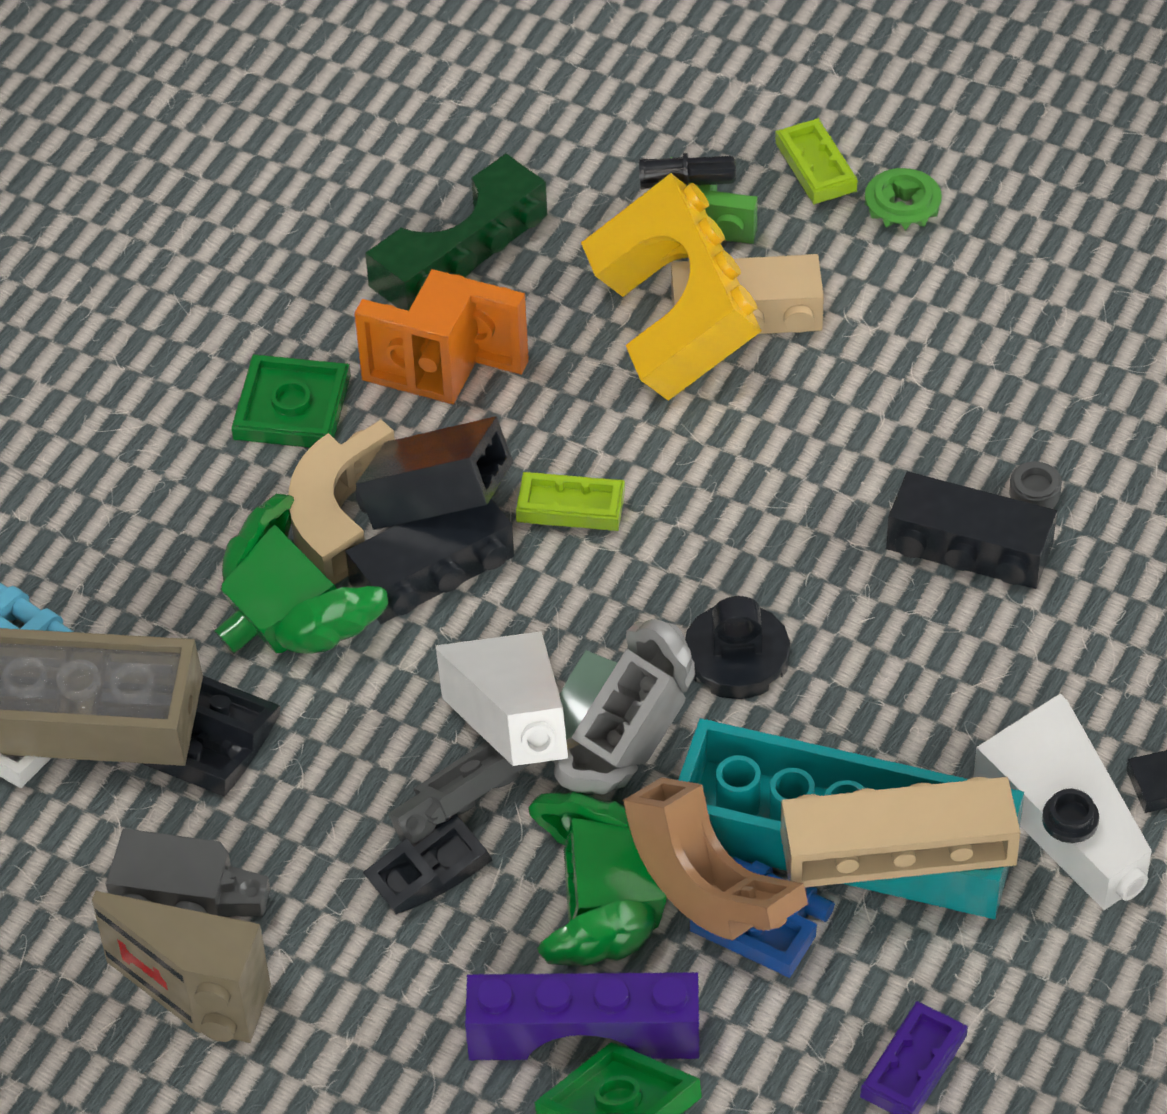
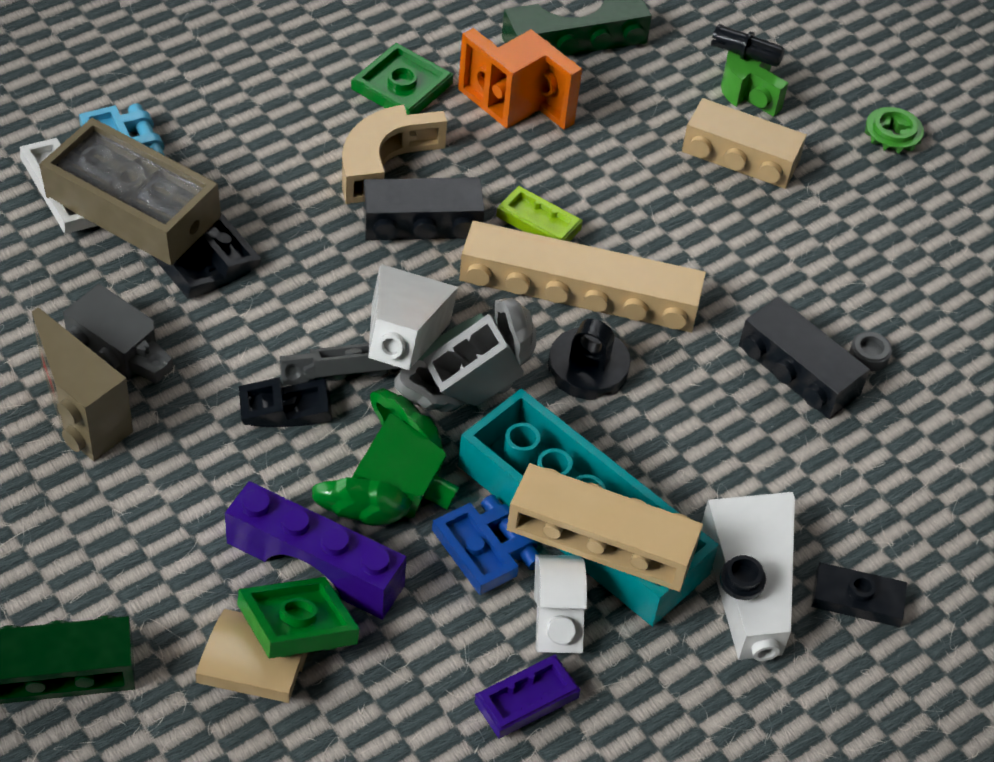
camera: 20 degrees right, 0 degrees up
(284, 593) = (308, 187): green torso -> none
(434, 473) = (452, 156): black brick -> none
(666, 550) = (581, 276): none -> tan brick
(695, 870) = (451, 483): medium nougat arch -> none
(714, 310) = (710, 133): yellow arch -> none
(816, 161) = (848, 82): lime plate -> none
(888, 932) = (561, 603): none -> white brick

